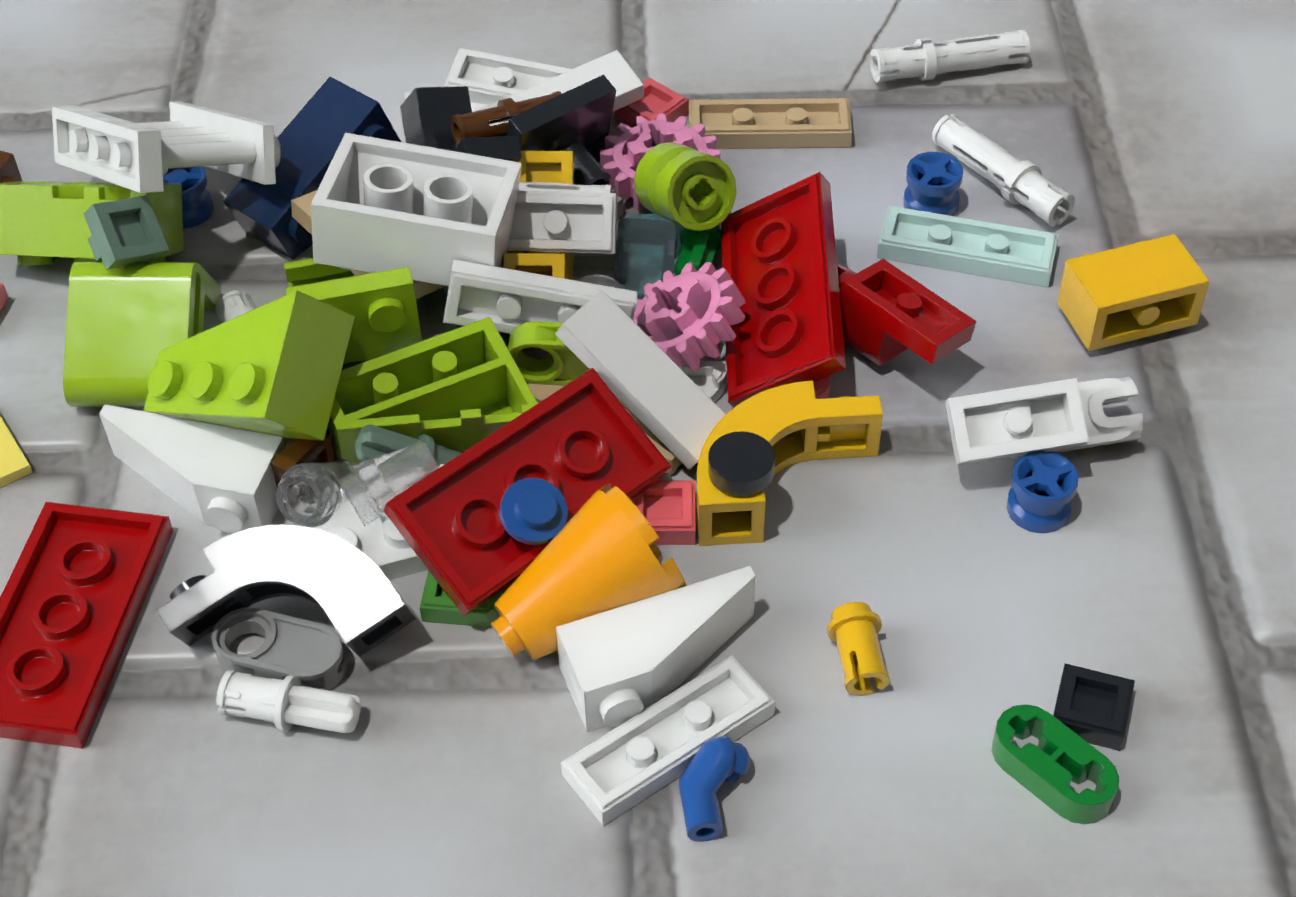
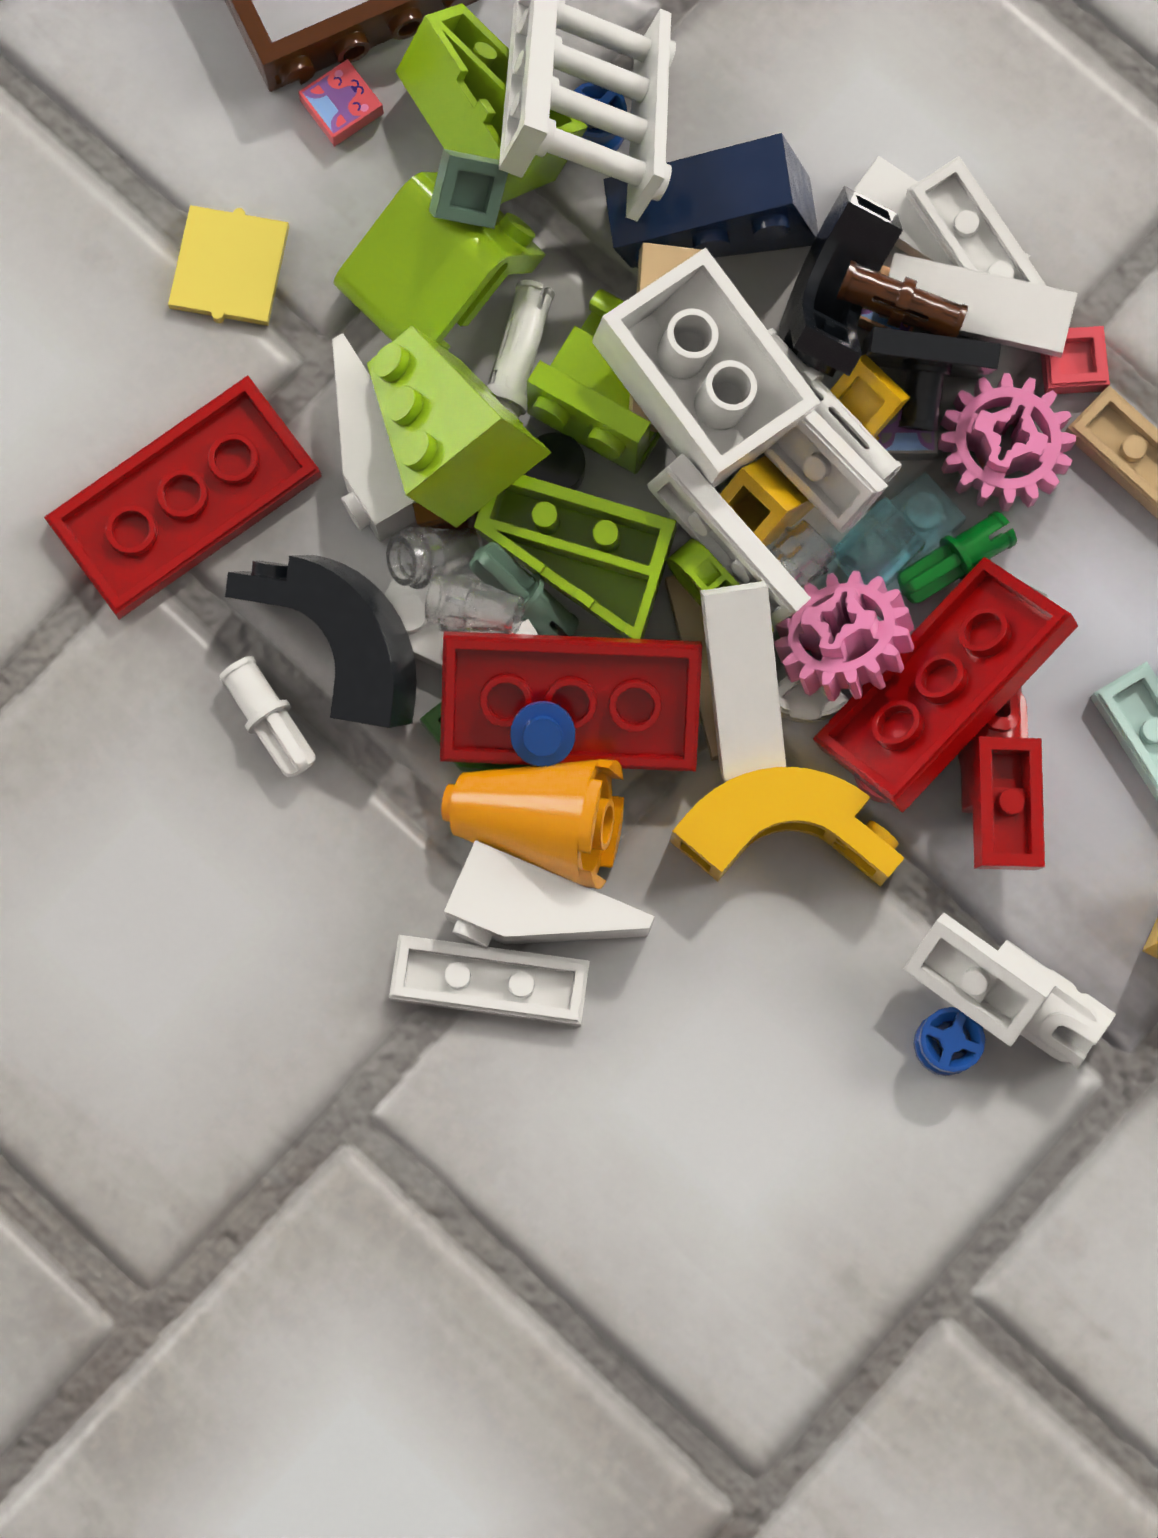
camera: 40 degrees right, 30 degrees up
(289, 648) = (303, 674): light grey piece -> none
(670, 510) = (666, 795): coral tile -> none
(685, 186) = (968, 512): lime wheel -> none
(698, 785) = (475, 1035): blue arm -> none
(741, 464) = (730, 829): black tile -> none
(855, 632) = (680, 1038): yellow pin -> none
(1054, 763) = (732, 1246): green beam -> none
(1094, 705) = (792, 1231): black tile -> none

